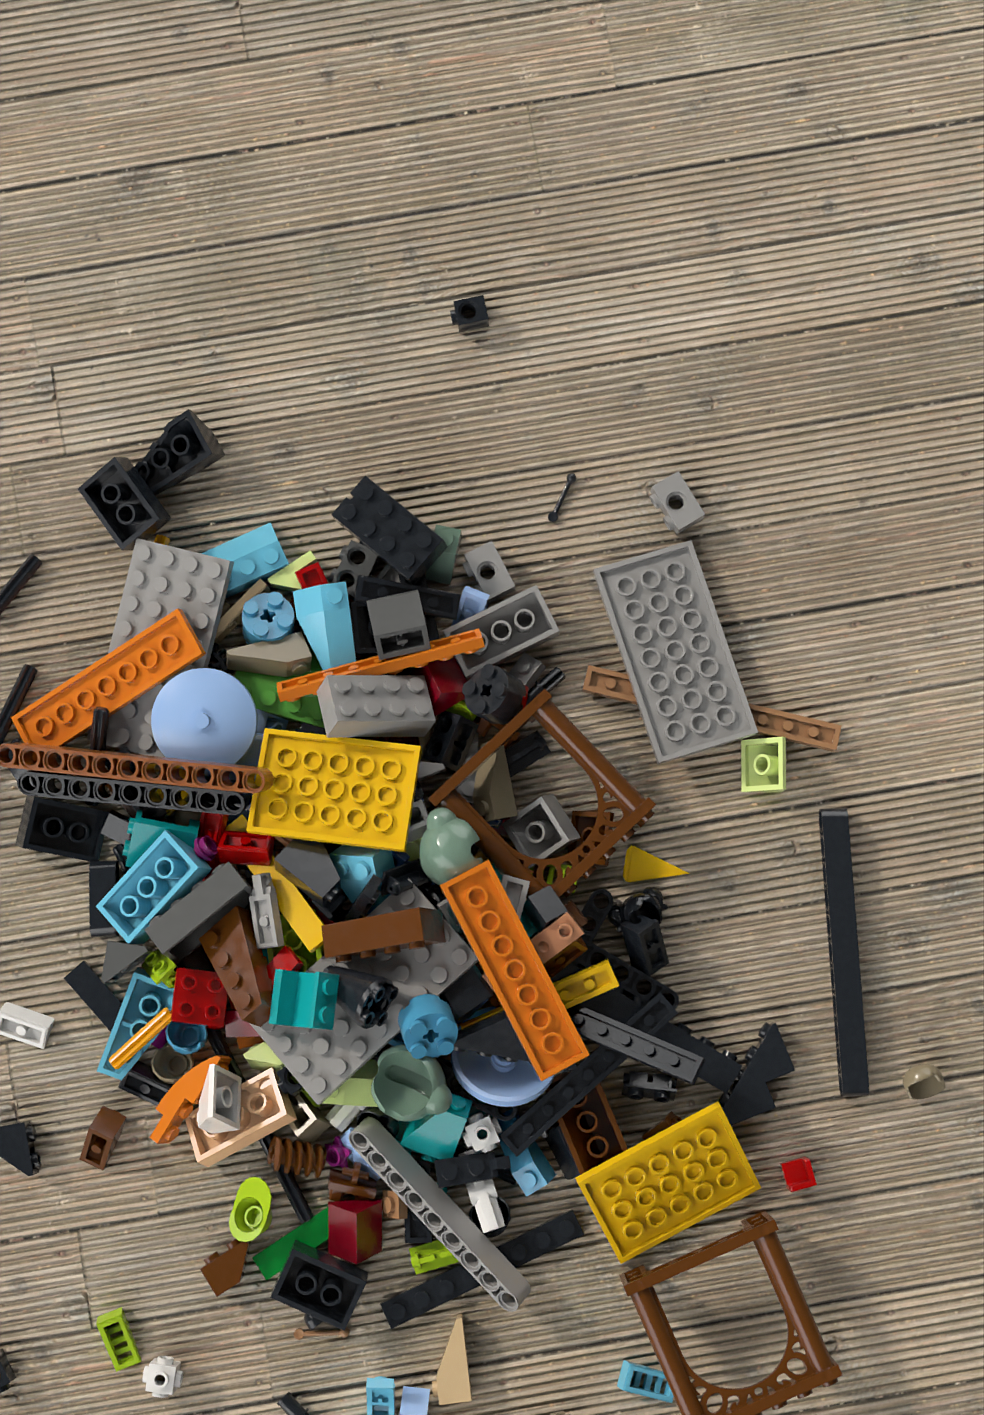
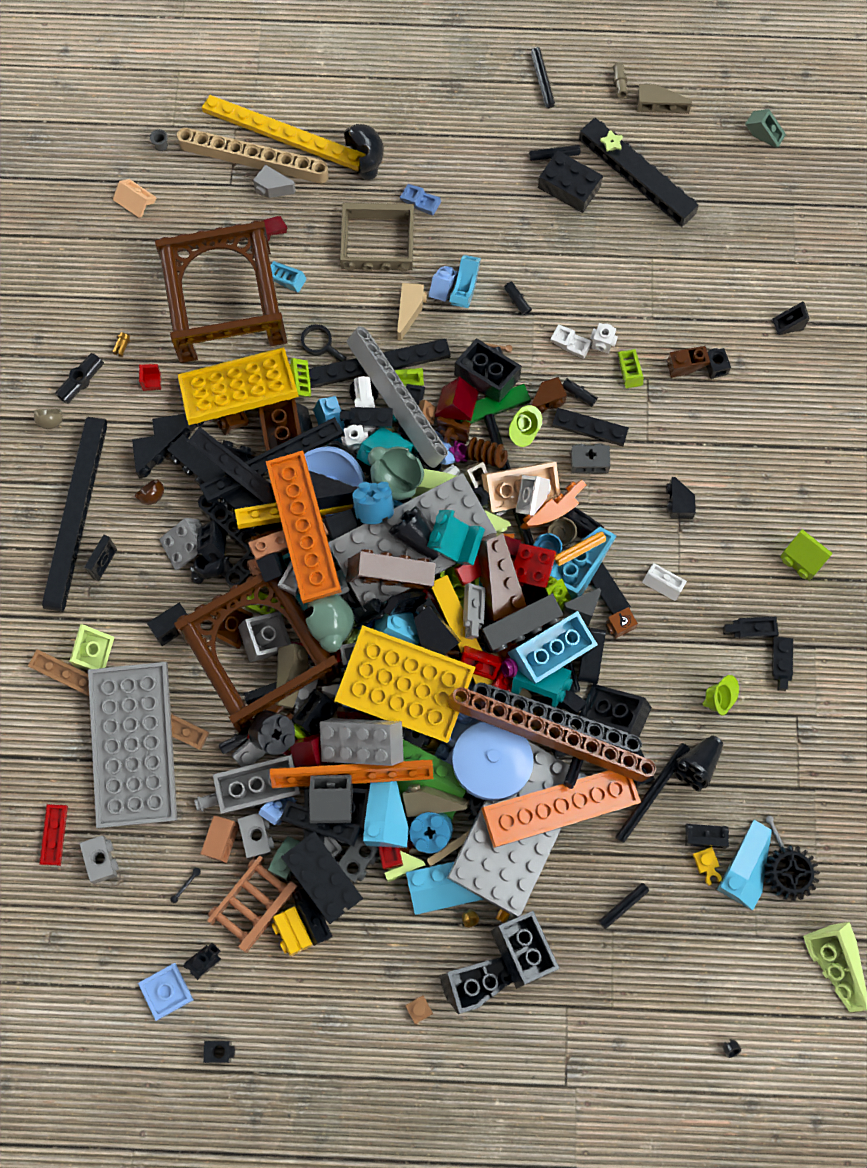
camera: 170 degrees left, 10 degrees down
(36, 1364) = (687, 361): none -> reddish brown slope
(72, 951) = (621, 623): none -> dark orange brick
(102, 1137) = (619, 494): reddish brown slope -> none
(136, 1179) = (582, 464): none -> dark grey brick
(161, 1234) = (590, 427): none -> black plate
(184, 1283) = (579, 392): none -> black pin
(201, 530) = (470, 918): none -> pearl gold hinge
(210, 1363) = (569, 341): none -> white slope
(242, 413) = (419, 1009): none -> medium nougat plate
(392, 483) = (311, 918): none -> black hinge
(415, 468) = (292, 931): none -> yellow brick
(457, 469) = (259, 922): none -> nougat fence
(514, 409) = (203, 961): none -> black hips
(532, 559) = (220, 839): none -> nougat hinge
(552, 369) = (165, 991): none -> light blue tile
(557, 1277) = (328, 348): none -> black piece
(562, 603) = (206, 801): none -> light grey pin
(576, 1206) = (305, 388): none -> lime slope
(644, 866) = (194, 597): yellow sticker -> none
(671, 822) = (163, 625): none -> black hinge
(685, 939) = (181, 542): none -> light grey bracket
(743, 523) = (53, 835): none -> red tile
(749, 1001) = (150, 493): none -> reddish brown hair
(787, 889) = (101, 557): none -> black tile
(855, 1220) = (121, 344): none -> pearl gold pin
(891, 1168) = (87, 370): none -> black piece

